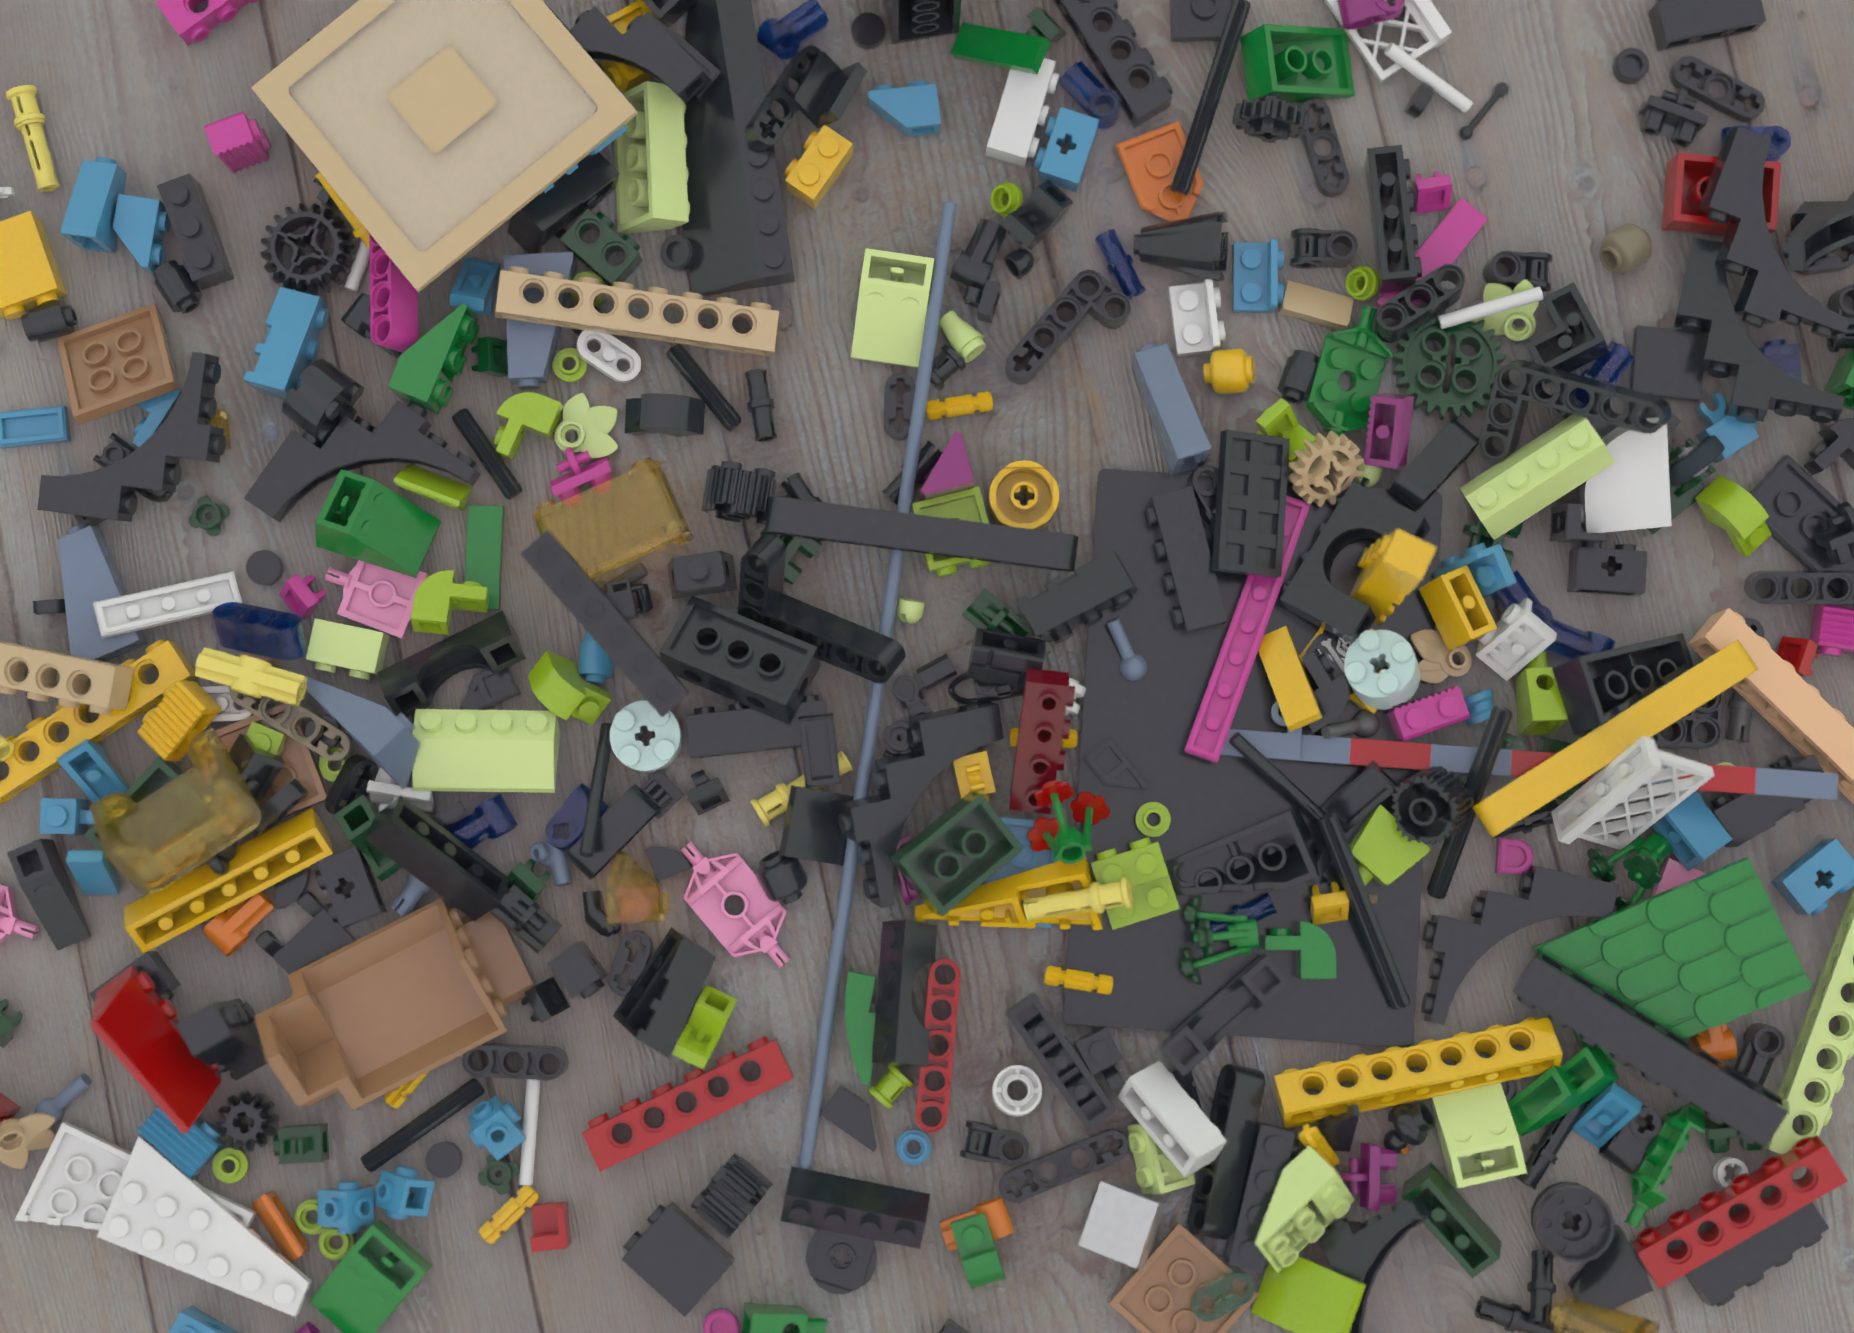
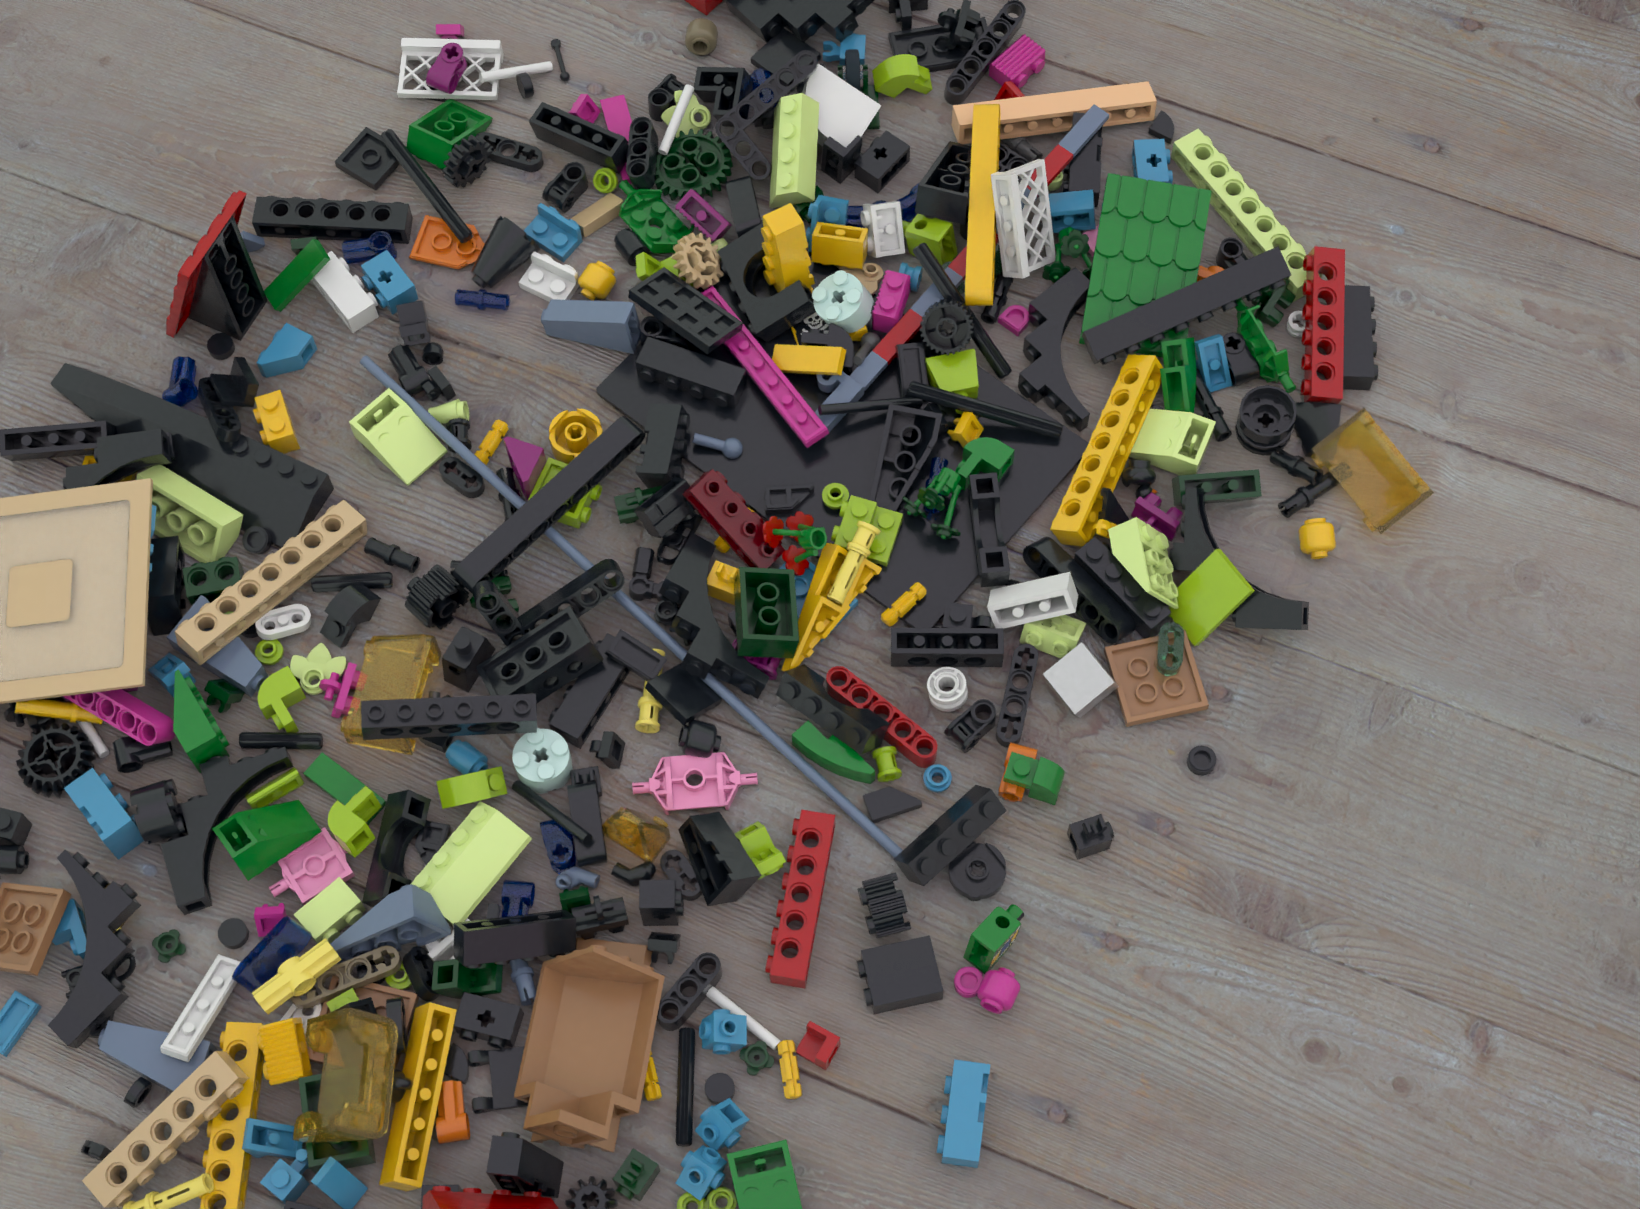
camera: 45 degrees left, 20 degrees down
(666, 862) = (636, 802): black tile -> none
(909, 610) = (592, 551): yellowish green hinge -> none
(1006, 198) = (383, 335): lime plate -> none
(1061, 330) = (490, 357): black beam -> none

